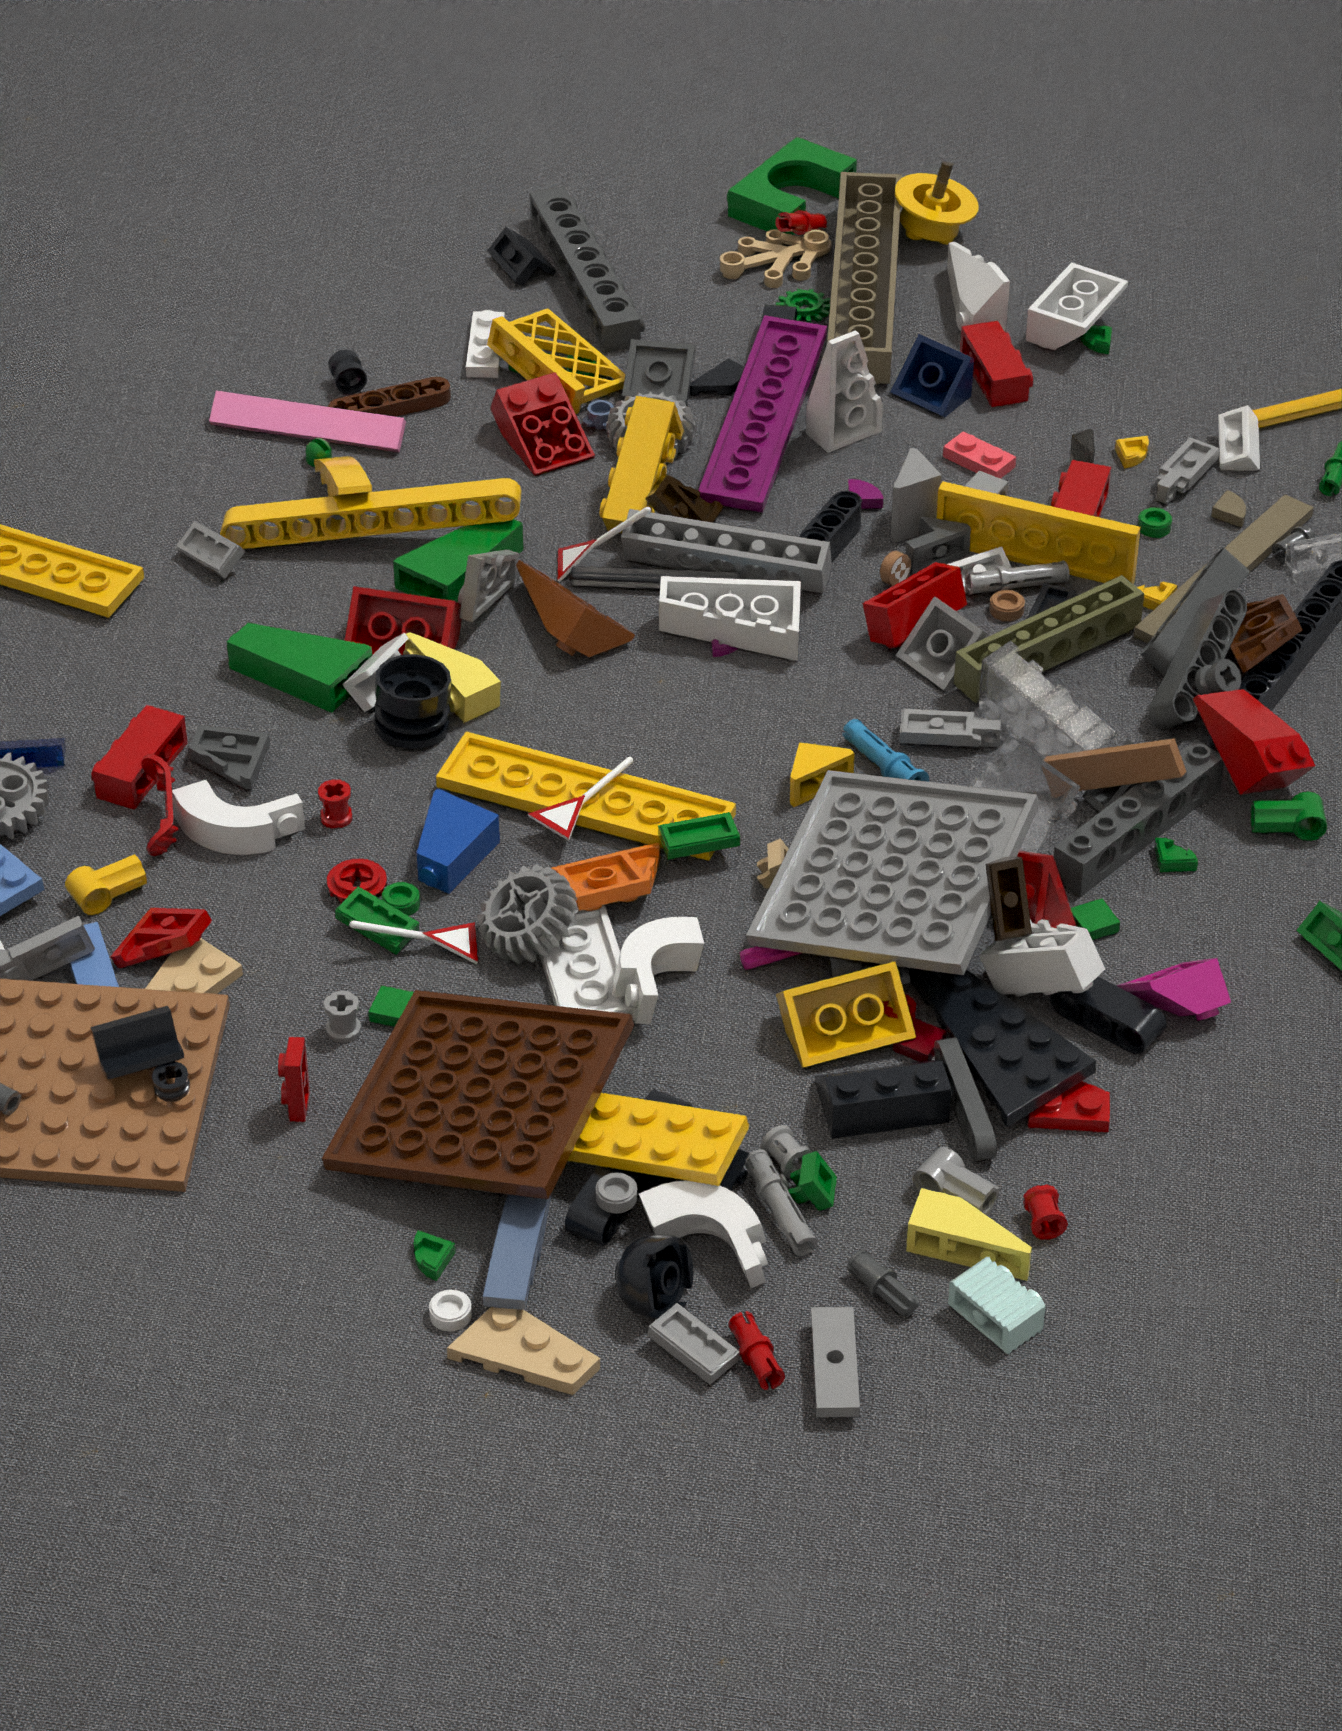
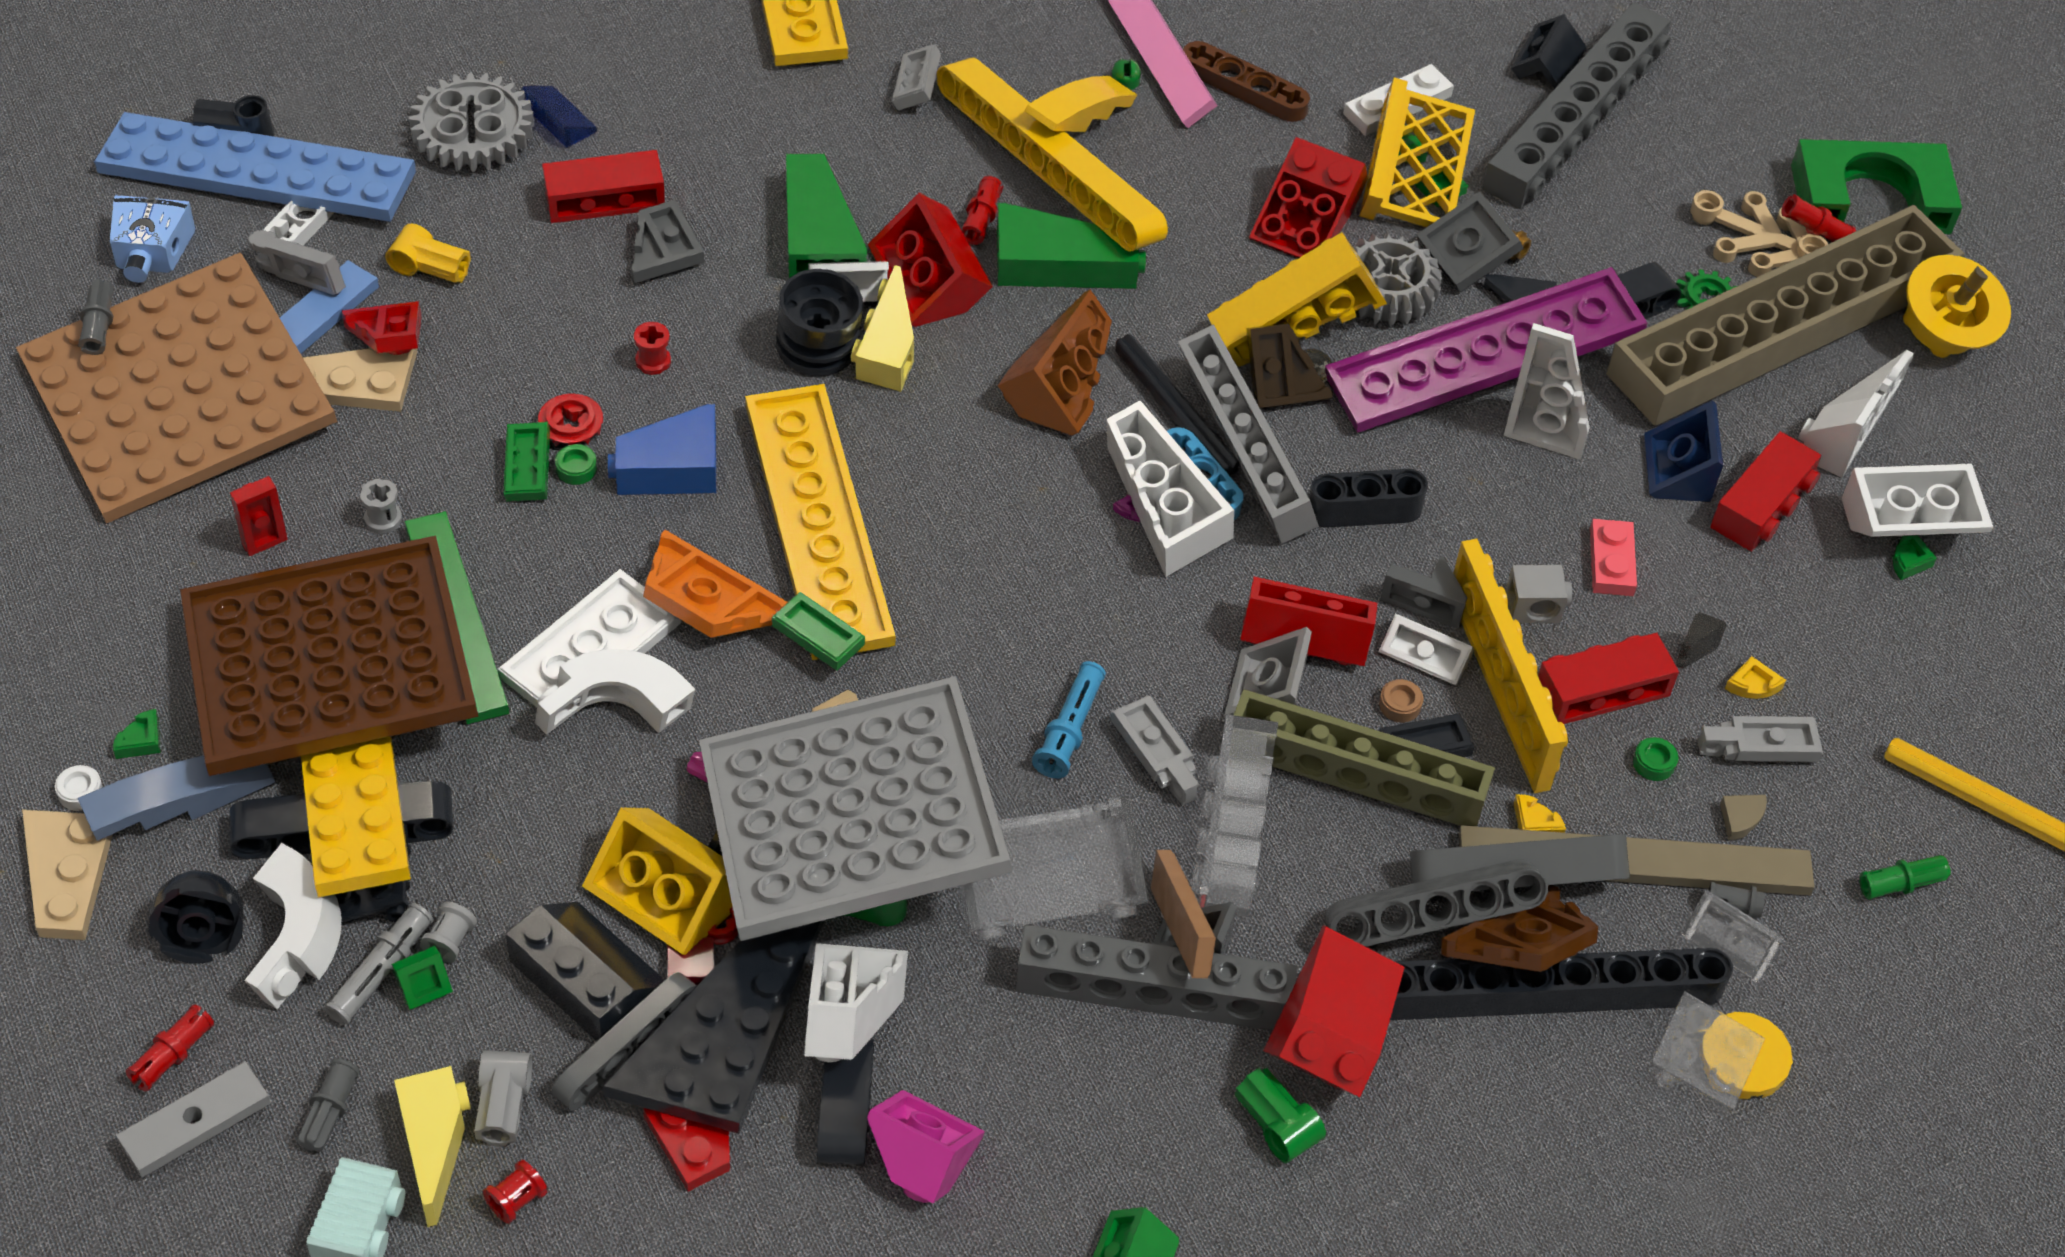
camera: 50 degrees right, 10 degrees up
(136, 1042) = (207, 383): black panel -> none
(161, 773) = (527, 255): red piece -> none
(174, 1091) = (186, 441): black bush -> none
(232, 827) = (562, 271): white arch -> none
(347, 371) = (1250, 28): black wheel -> none
(372, 577) = (982, 209): none -> red pin
(457, 939) = (551, 531): white piece -> none
(486, 581) = (1027, 280): light grey wing -> none
(528, 914) = (600, 561): light grey gear -> none
(563, 816) = (762, 514): white piece -> none
(573, 554) = (1155, 324): white piece -> none
(597, 414) = (1375, 226): sand blue plate -> none
(616, 1193) = (272, 825): light grey tile -> none
(693, 1343) = (146, 992): light grey plate -> none
(811, 766) = (996, 674): yellow slope -> none
(870, 495) = (1457, 495): magenta tile -> none
(895, 568) = (1361, 579): medium nougat tile -> none
(914, 496) = (1461, 520): light grey slope -> none
(1008, 898) = (860, 916): dark brown slope -> none
(1010, 578) = (1429, 675): light grey pin -> none
(1045, 890) = (952, 950): red wing -> none
(1096, 918) = (981, 1019): green tile -> none
(1173, 857) = (1138, 1041): green tile -> none
(1218, 677) = (1402, 928): dark grey wheel -> none
(1239, 440) = (1859, 764): white slope -> none

